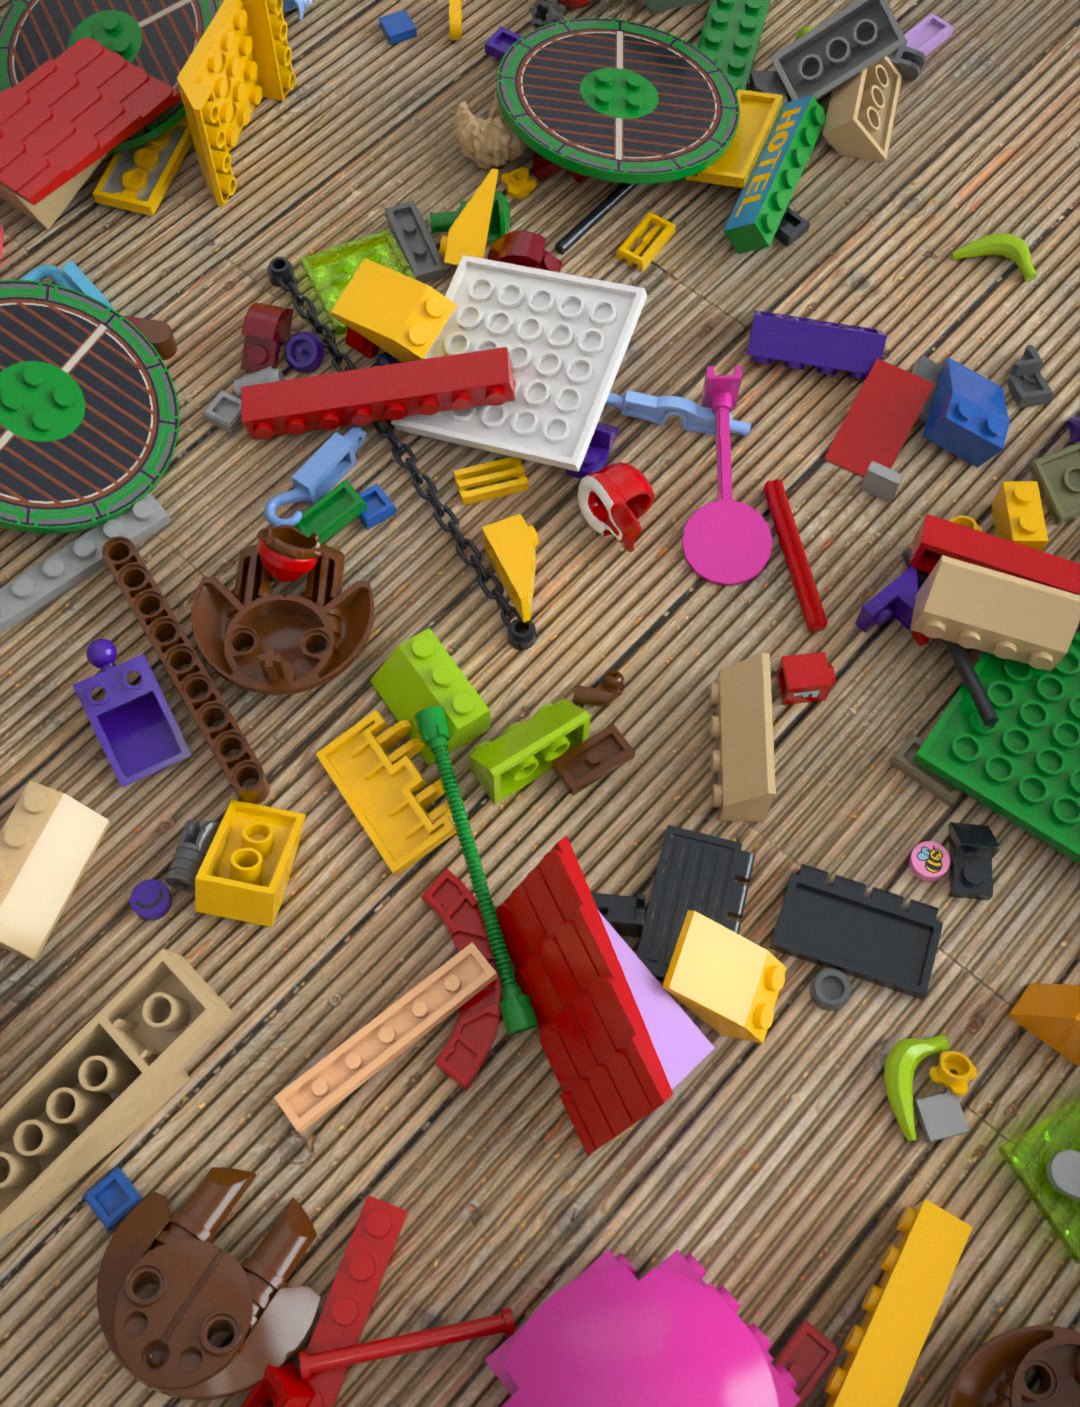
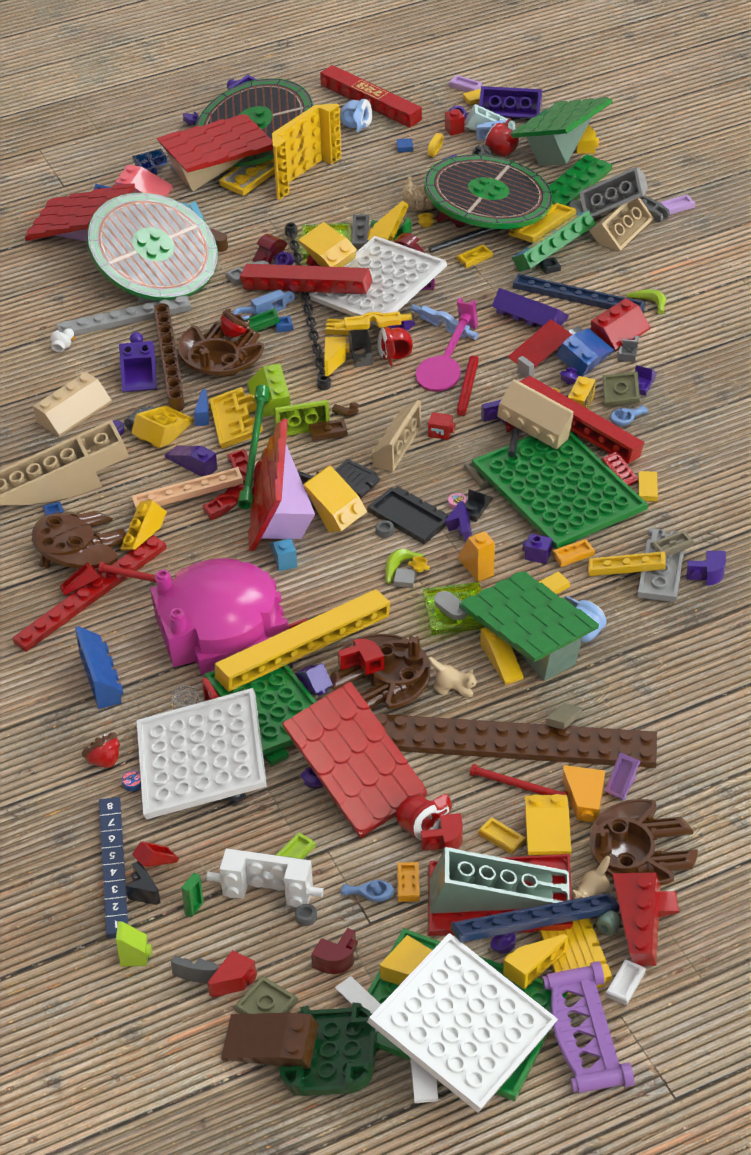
camera: 25 degrees right, 20 degrees down
(320, 801) = (201, 411): none -> blue slope
(340, 1191) = (144, 524): none -> yellow slope
(354, 935) = (194, 458): none -> dark purple slope
(551, 478) = (381, 319): none -> yellow piece
(551, 501) = (362, 338): none -> dark grey piece
(670, 1144) = (284, 554): none -> dark azure slope
(872, 279) = (570, 292): none -> dark blue tile
(967, 477) = (569, 375): none -> dark purple hat
(976, 917) = (459, 520): none -> dark purple slope
(990, 329) = (620, 323): none -> slope

